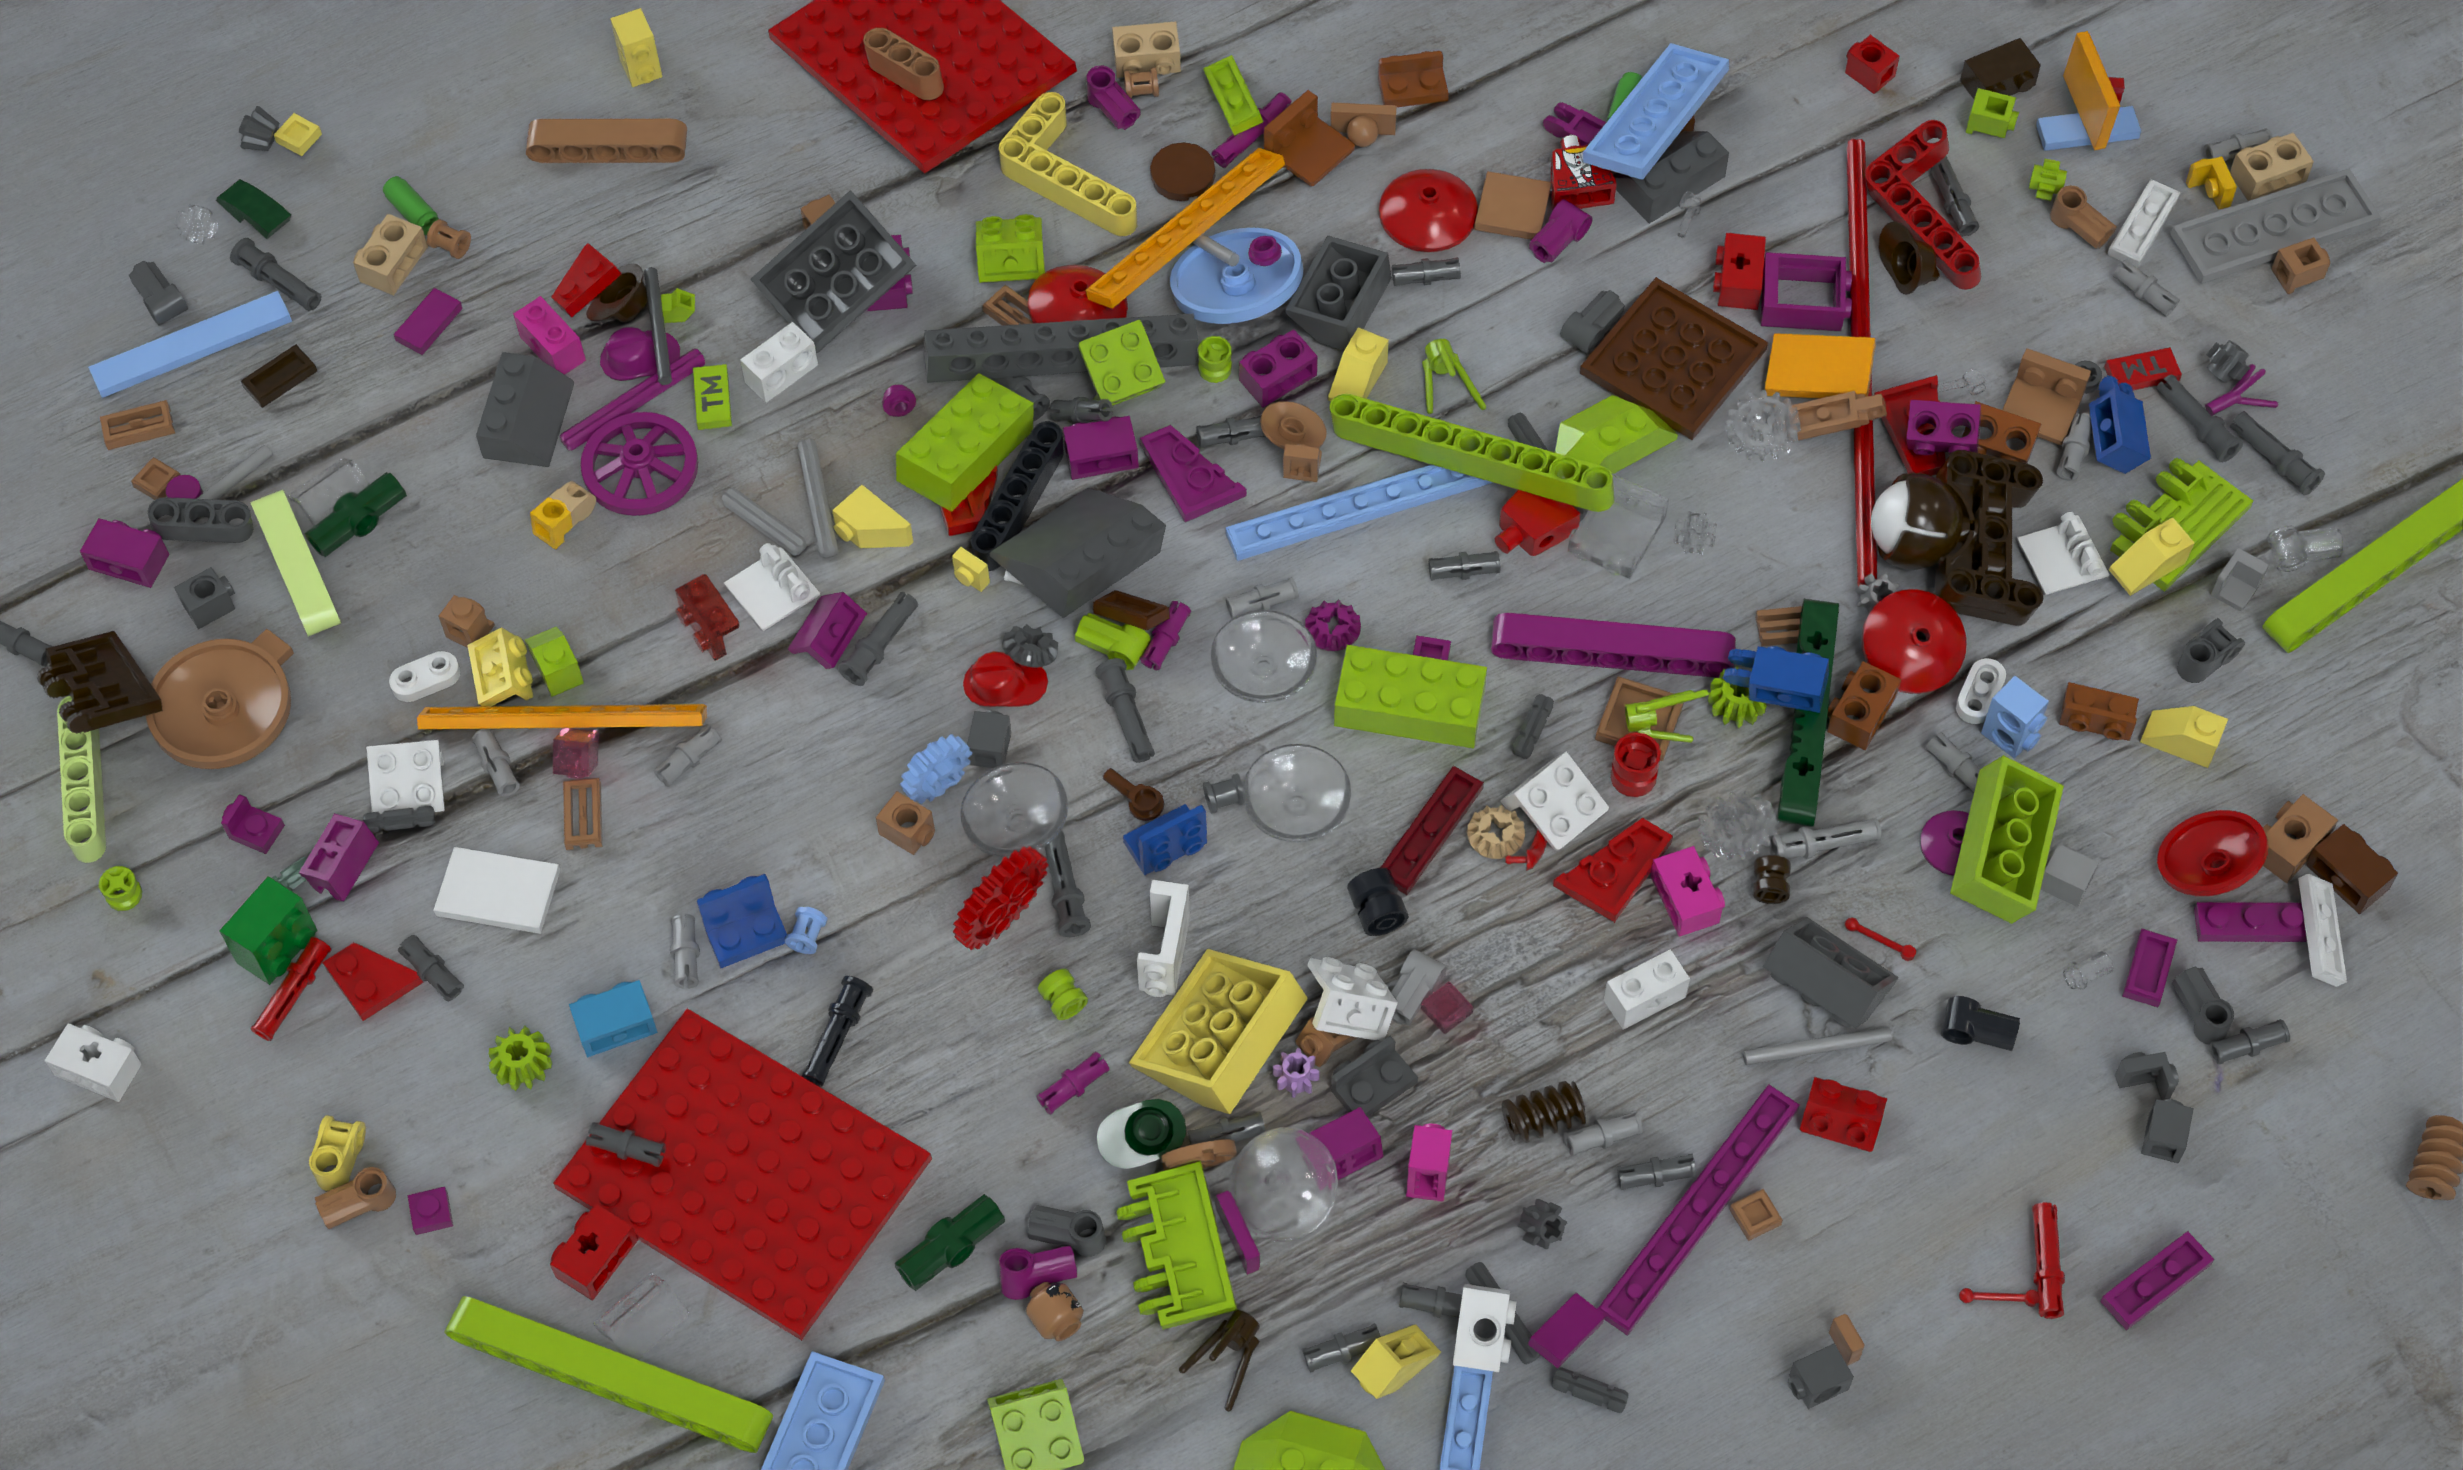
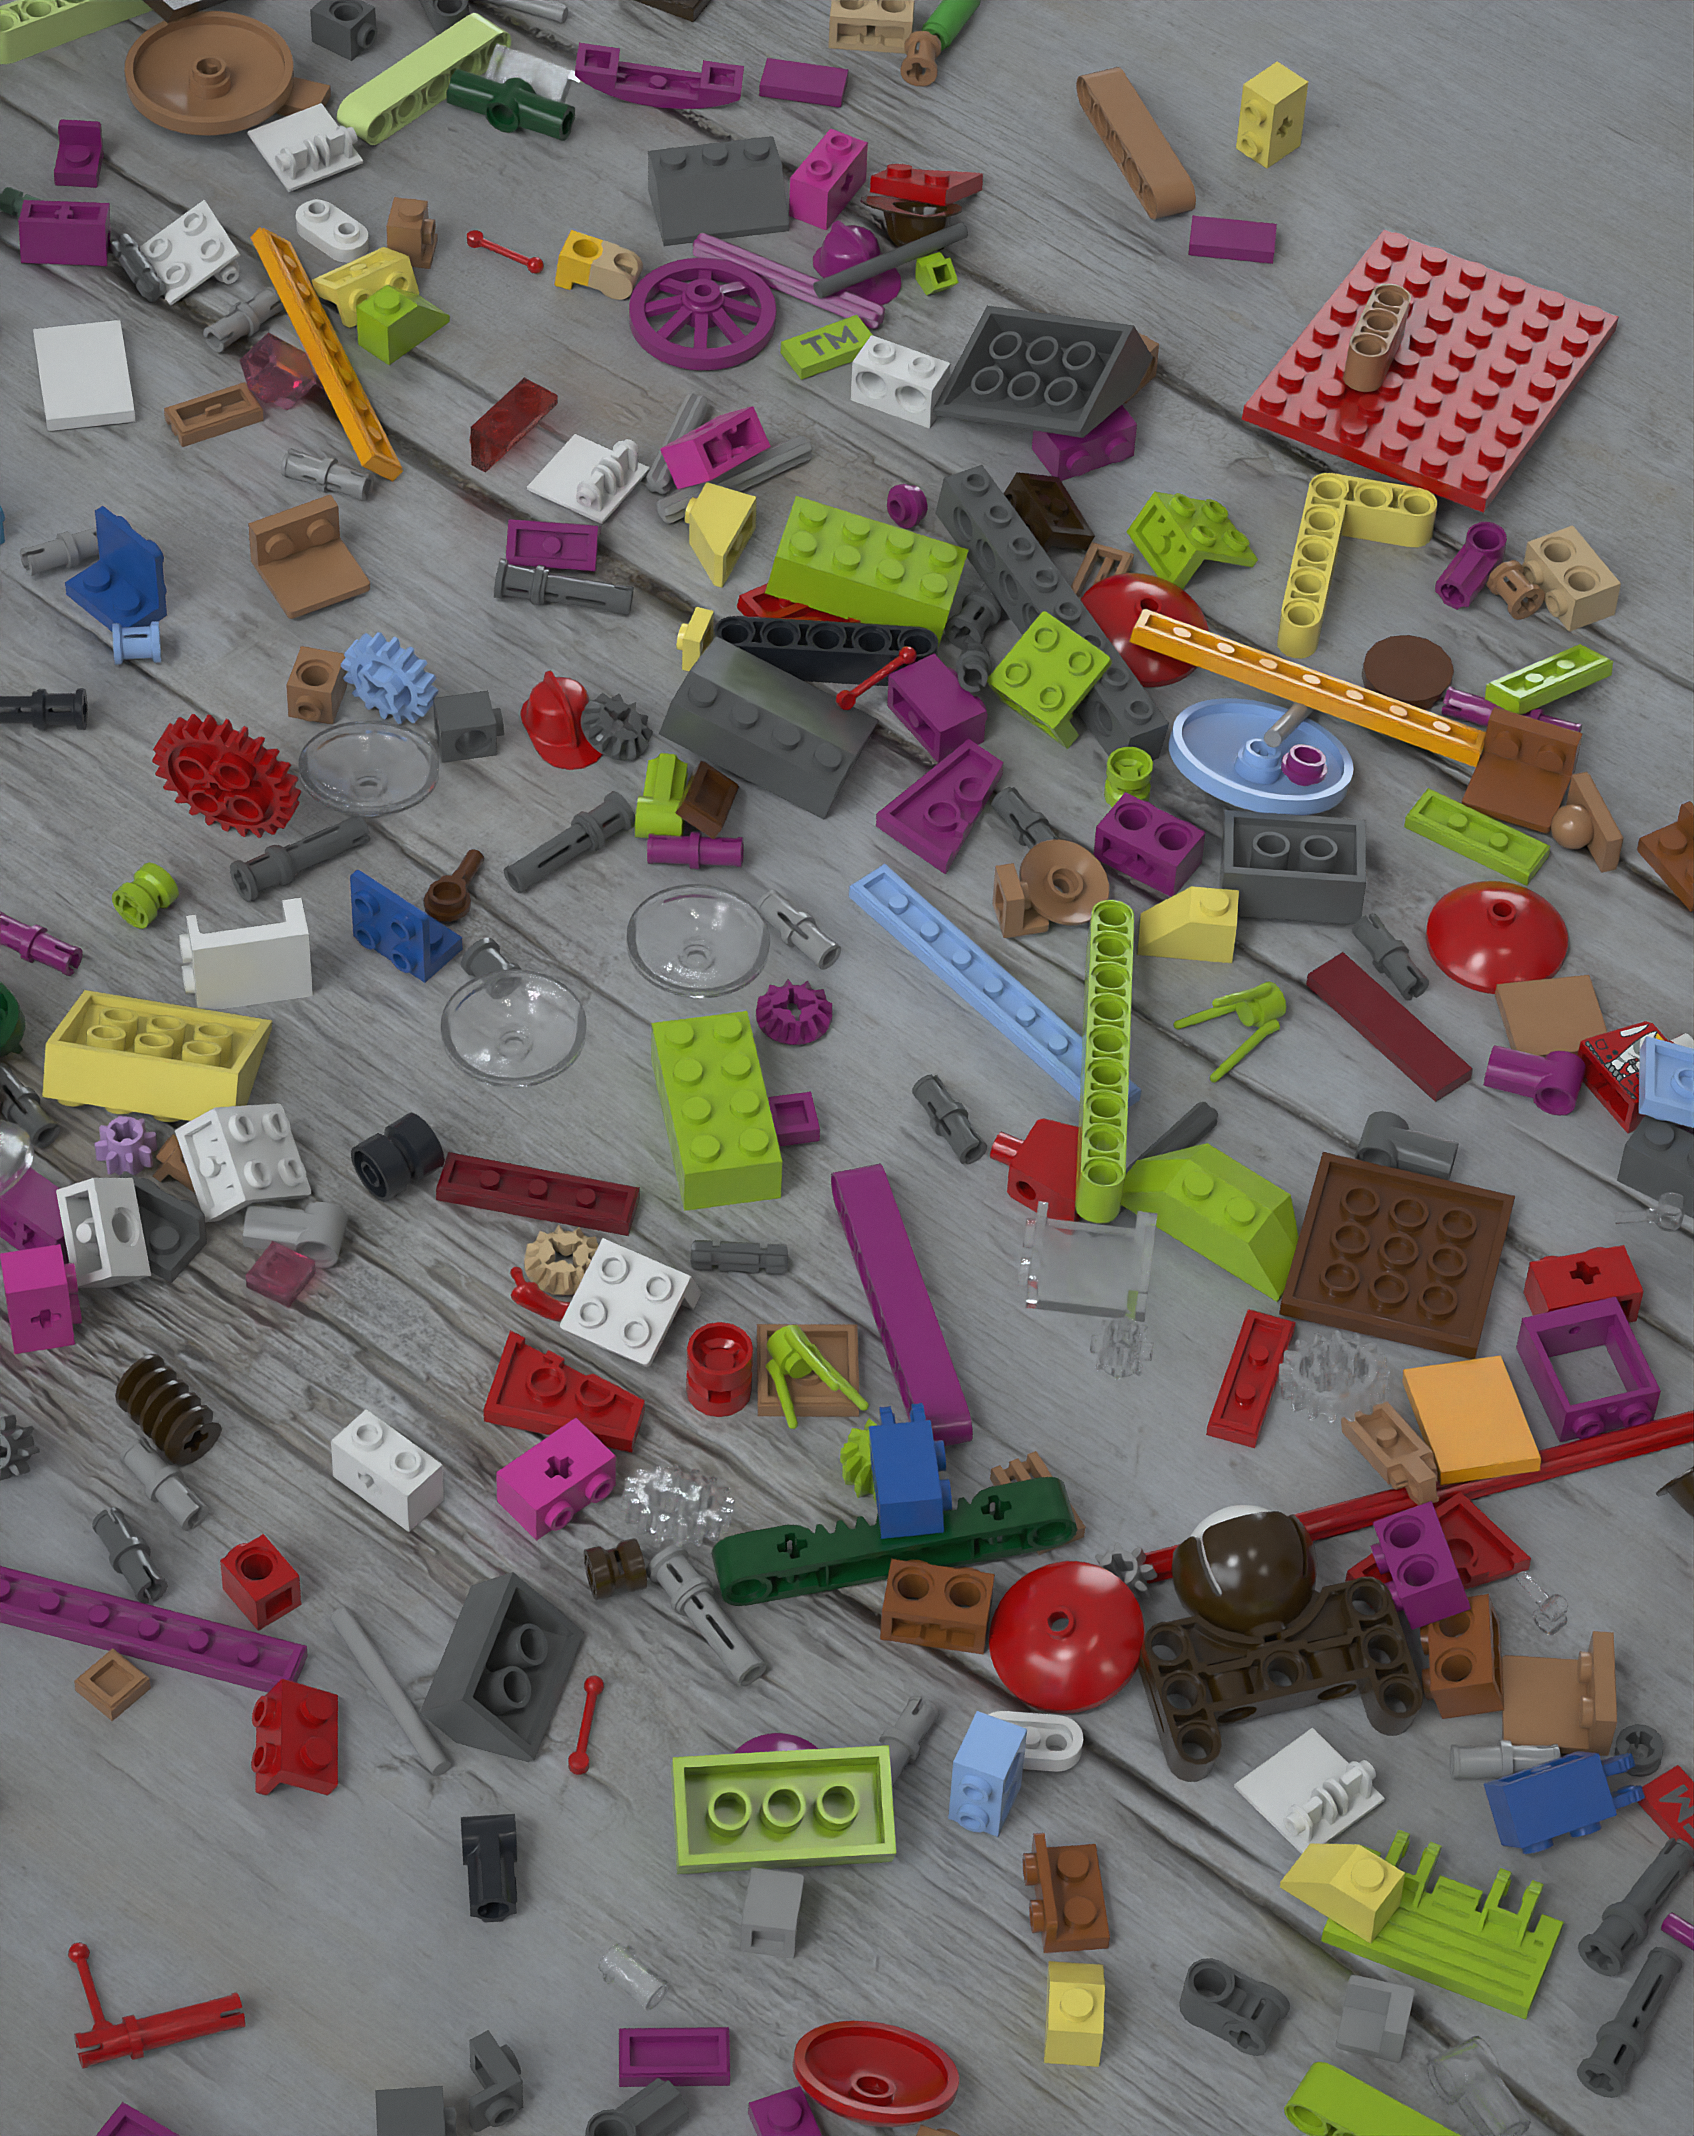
camera: 65 degrees right, 10 degrees down
(326, 664) = (306, 147): none -> white hinge
(384, 410) = (655, 85): none -> magenta slope
(481, 584) = (476, 239): none -> red hinge
(728, 120) = (1232, 239): none -> magenta tile
(780, 793) = (305, 558): none -> medium nougat bracket
(798, 494) = (715, 447): none -> dark pink brick
(944, 315) = (1048, 511): none -> dark brown bracket
(1061, 444) = (847, 699): none -> red hinge
(1340, 188) = (1477, 836): none -> lime tile
(1388, 1101) = (103, 1232): none -> white brick
(1481, 295) = (1389, 1026): none -> dark red tile
(1718, 1083) = (262, 1599): none -> red brick
(1736, 473) = (1250, 1378): none -> red tile

